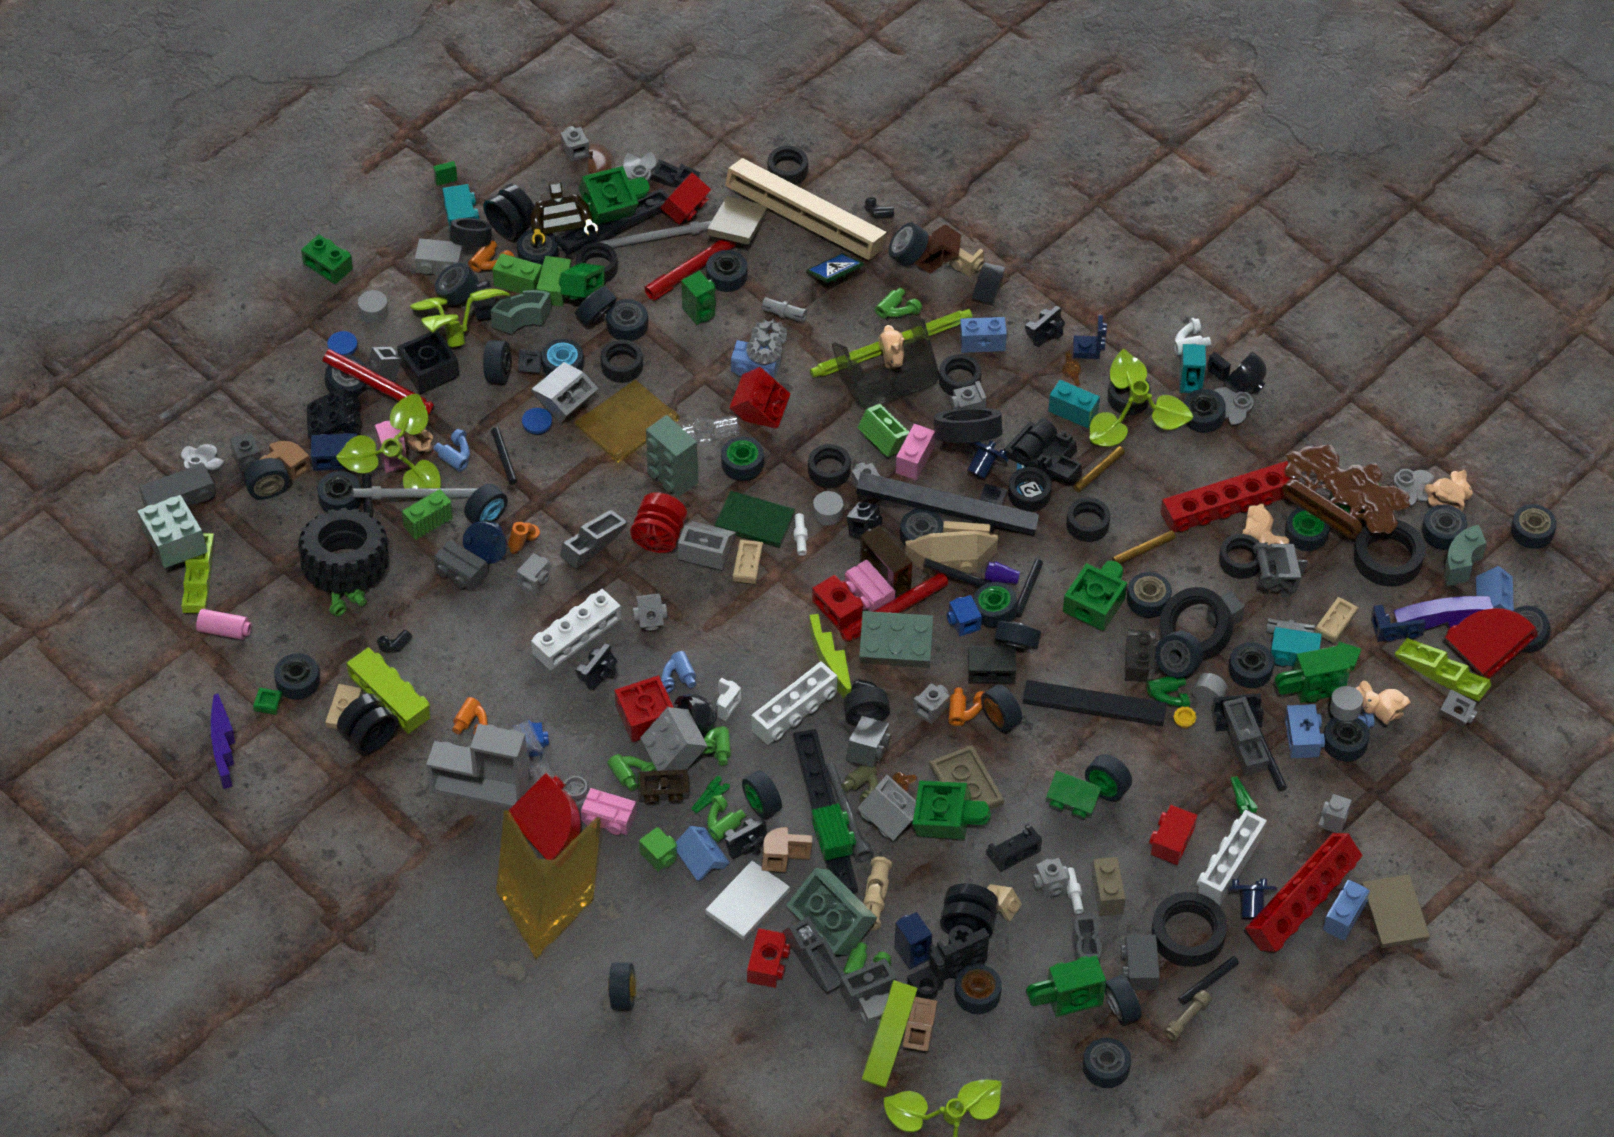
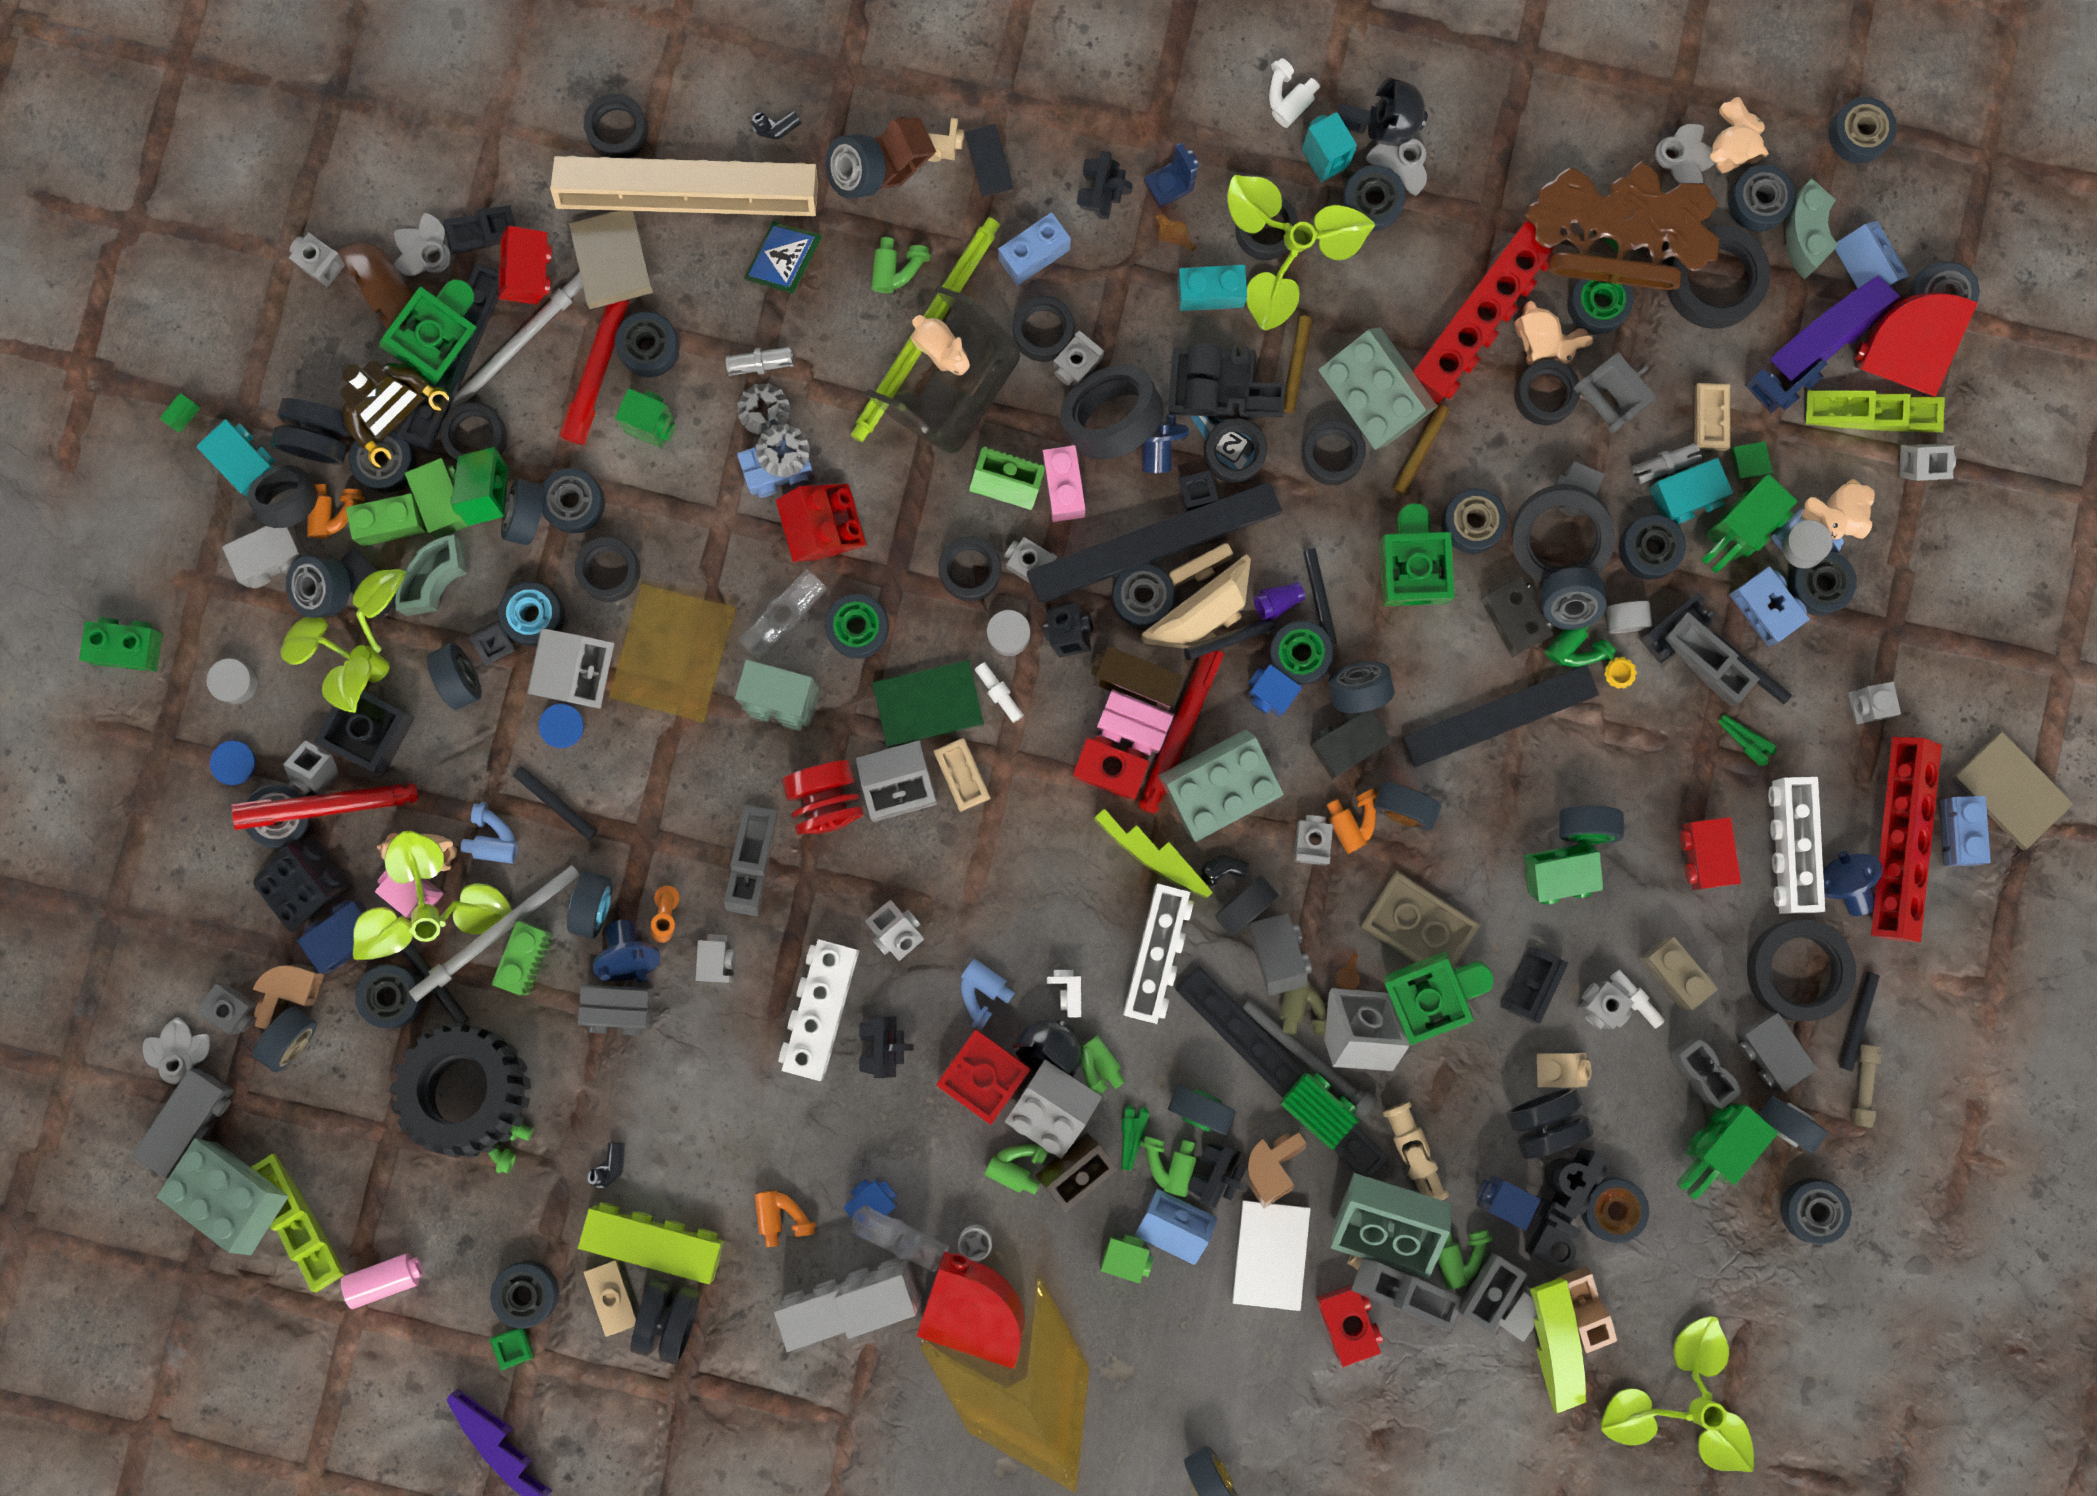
camera: 35 degrees left, 30 degrees up
(615, 811) = (1032, 1245): bright pink brick -> none
(1136, 495) = (1377, 388): none -> sand green brick

